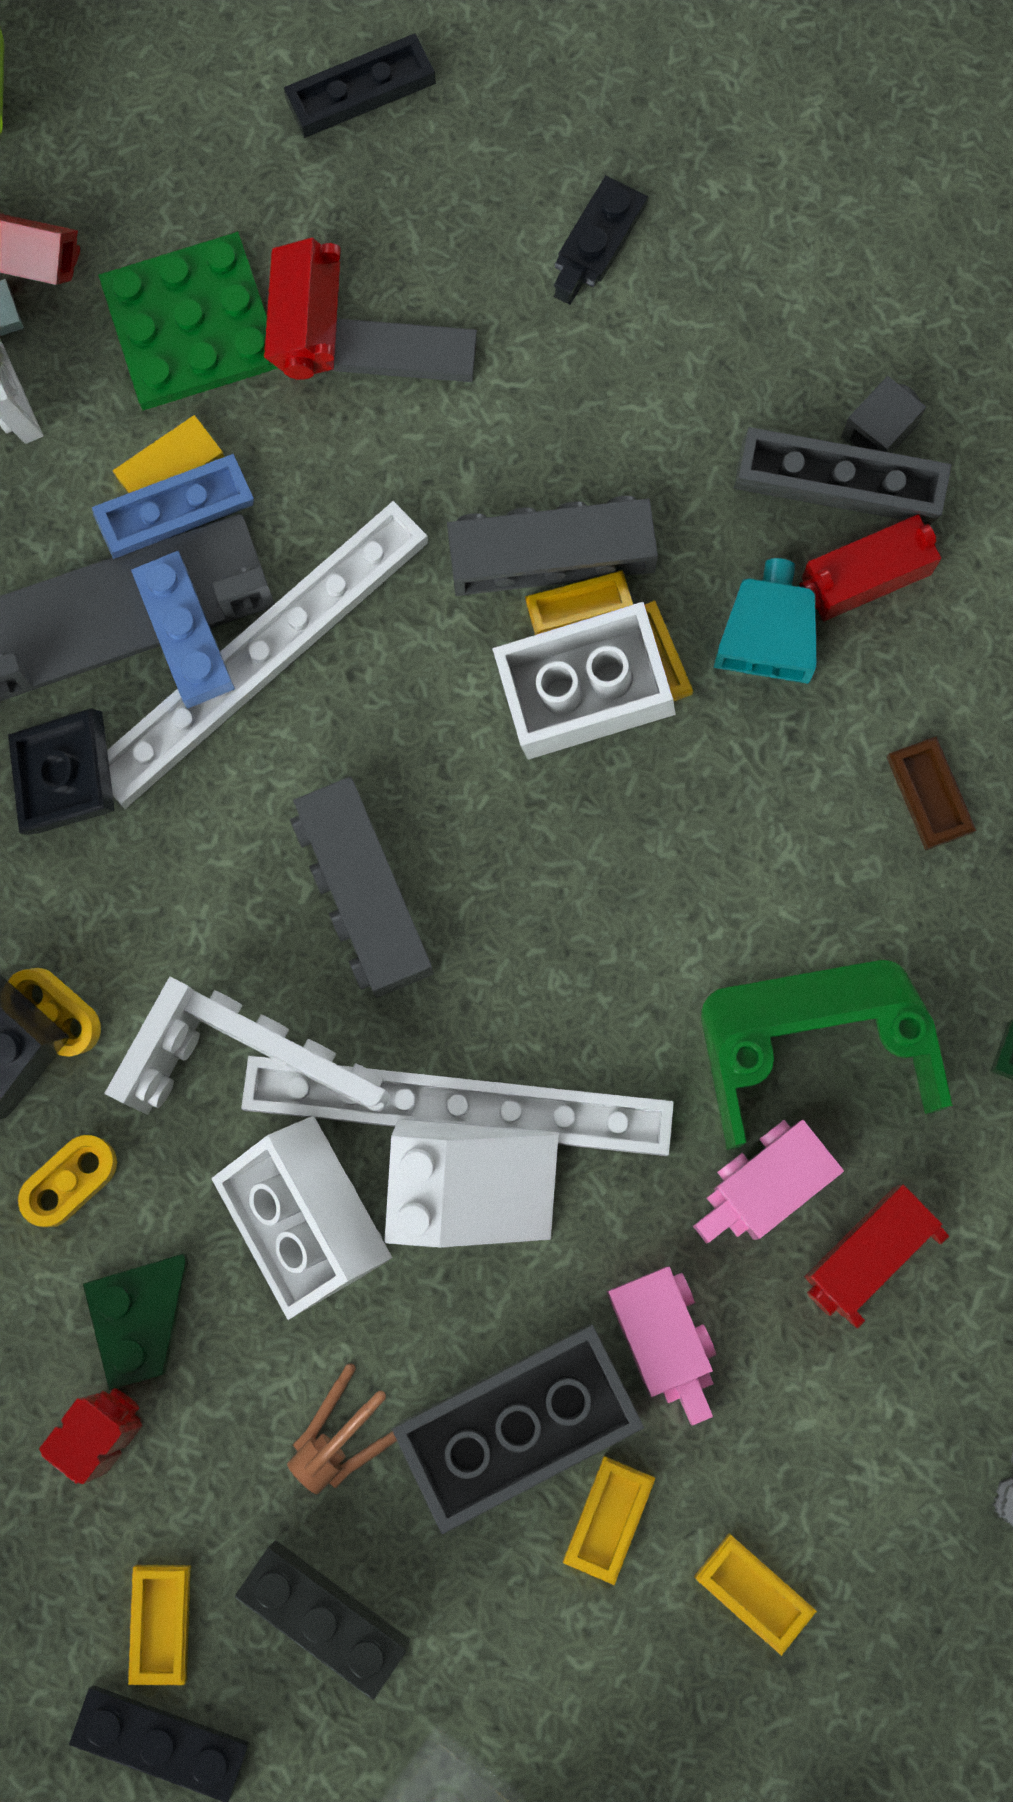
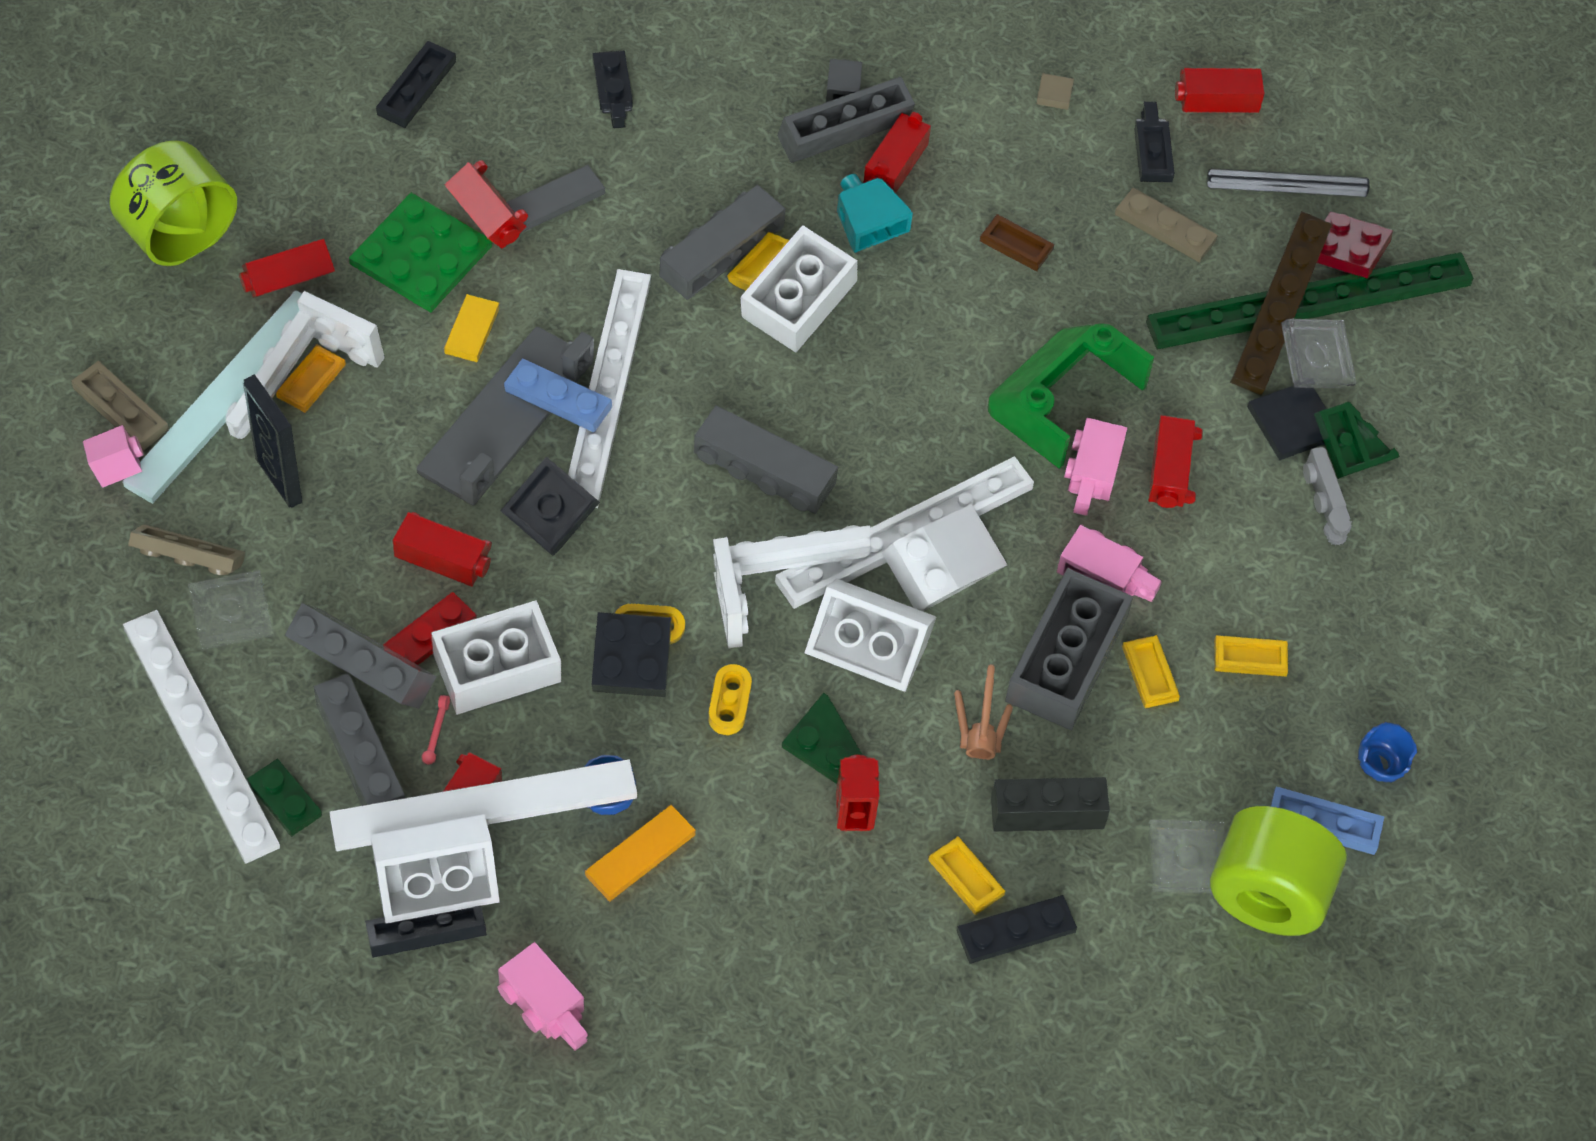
camera: 45 degrees left, 20 degrees down
(173, 506) = (497, 342): medium blue plate -> none

